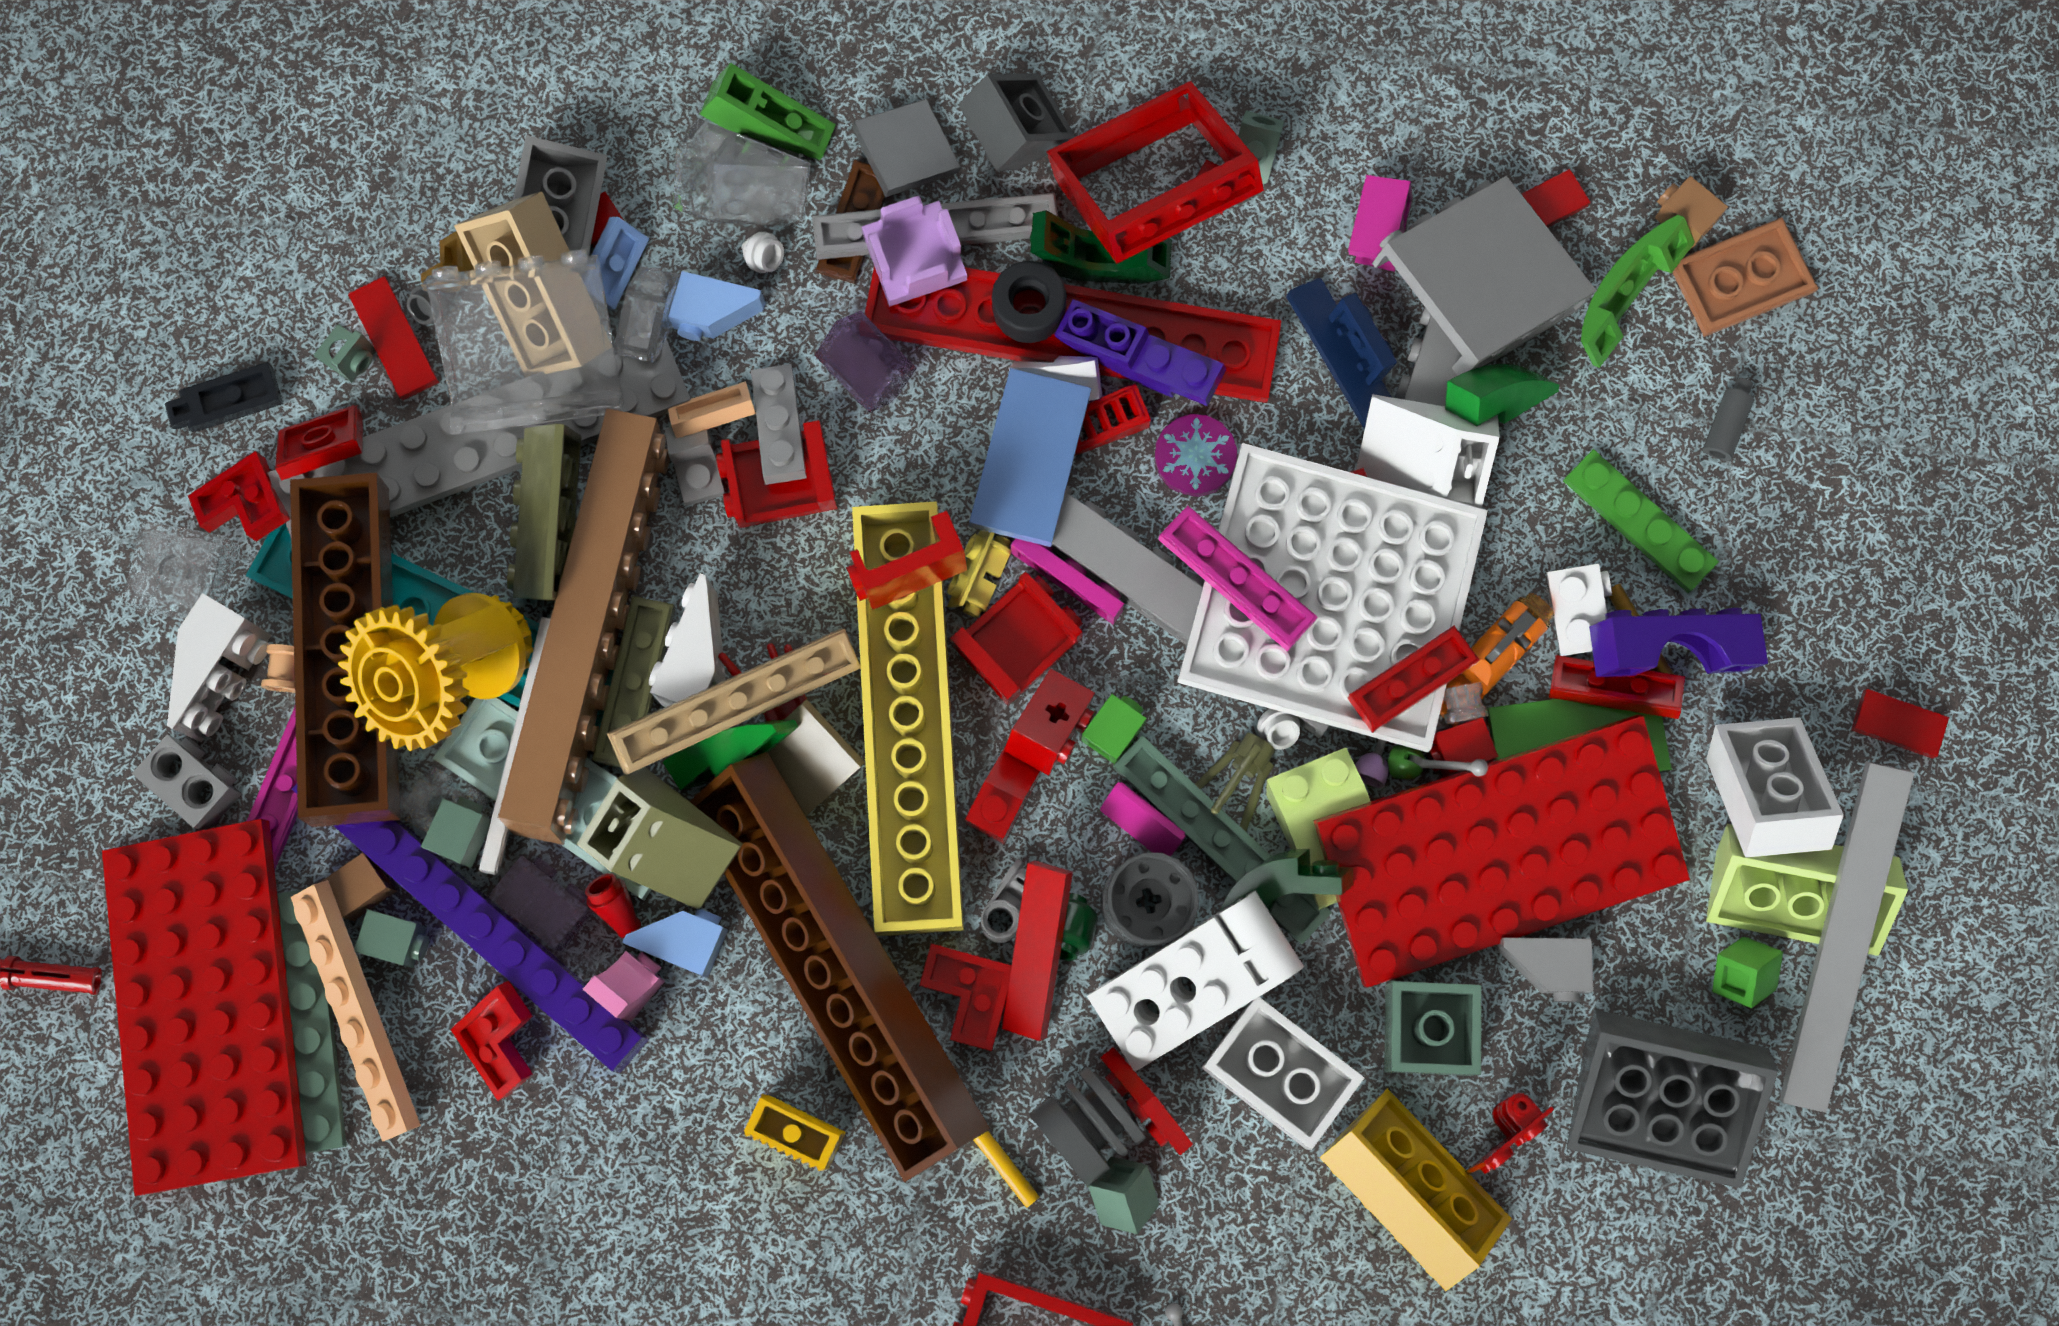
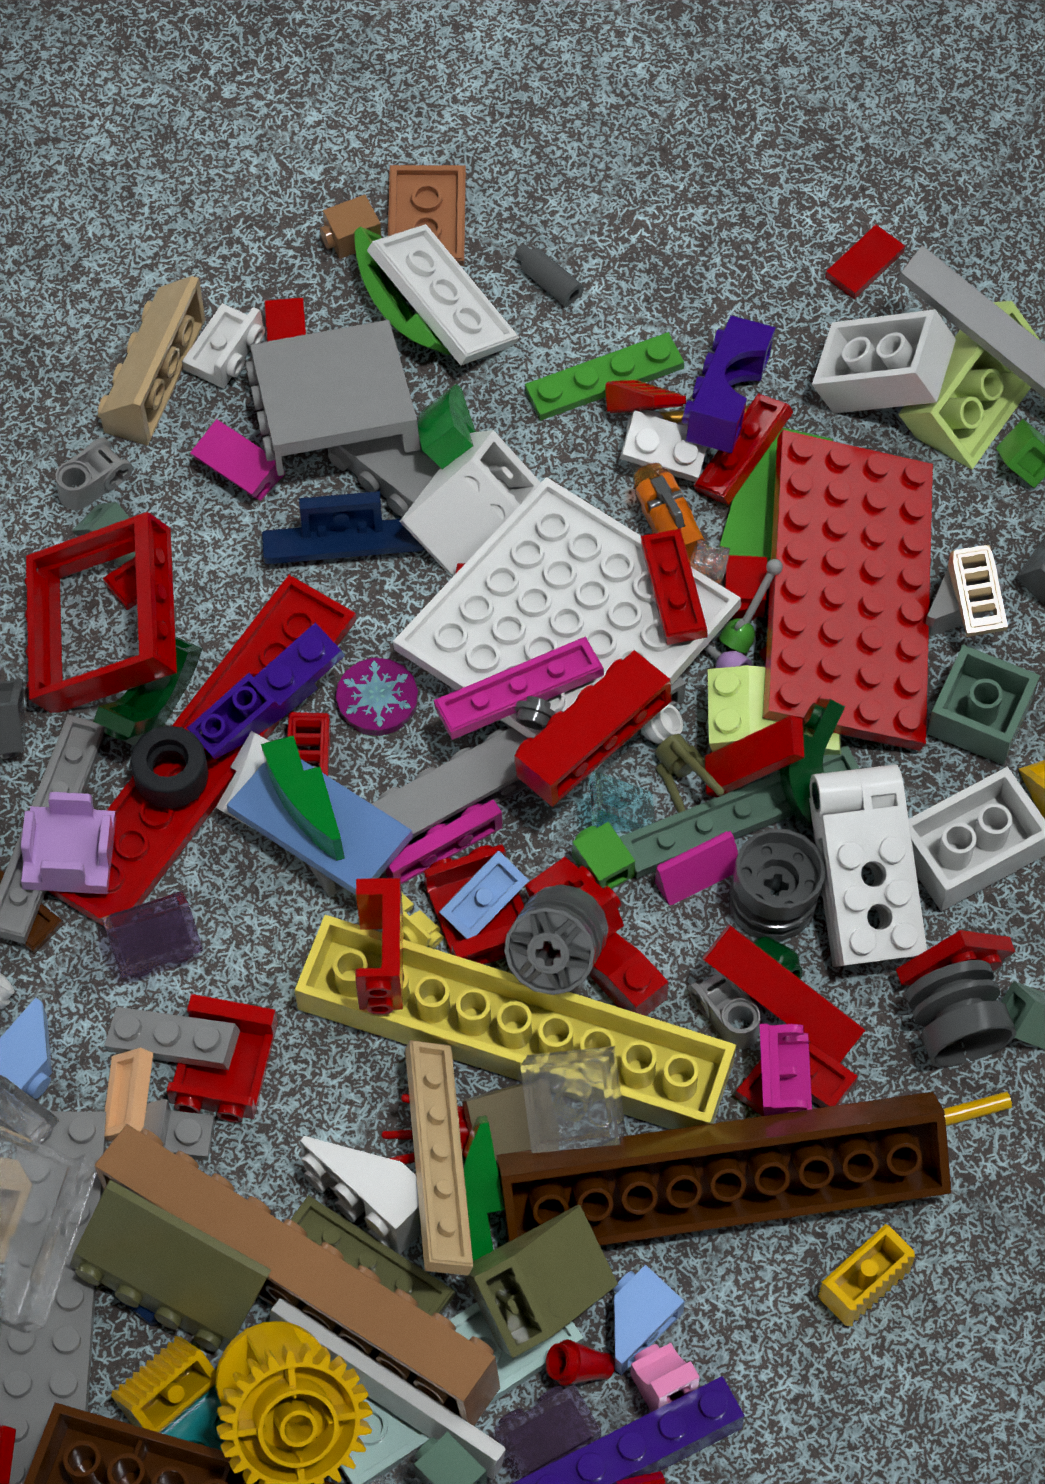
camera: 70 degrees left, 15 degrees down
(457, 559) = (165, 1386): none -> yellow brick
(836, 798) = (573, 1099): none -> clear brick
(958, 982) = (785, 1068): none -> dark pink hinge
(988, 718) = (572, 924): none -> dark grey wheel
(1025, 636) = (483, 895): none -> light blue plate
(1040, 430) = (303, 795): none -> green slope
(1175, 722) = (618, 803): none -> clear light blue slope
(1210, 603) = (534, 712): none -> dark grey plate
(1217, 662) = (592, 727): none -> red brick
(1265, 829) = (756, 755): none -> red tile
(1309, 100) = (95, 470): none -> light grey piece
(1450, 99) = (153, 361): none -> tan slope
(1502, 152) = (224, 345): none -> white bracket
(1580, 956) = (974, 565): none -> slope
(1623, 564) = (633, 395): none -> red slope
(1651, 328) = (443, 294): none -> white tile

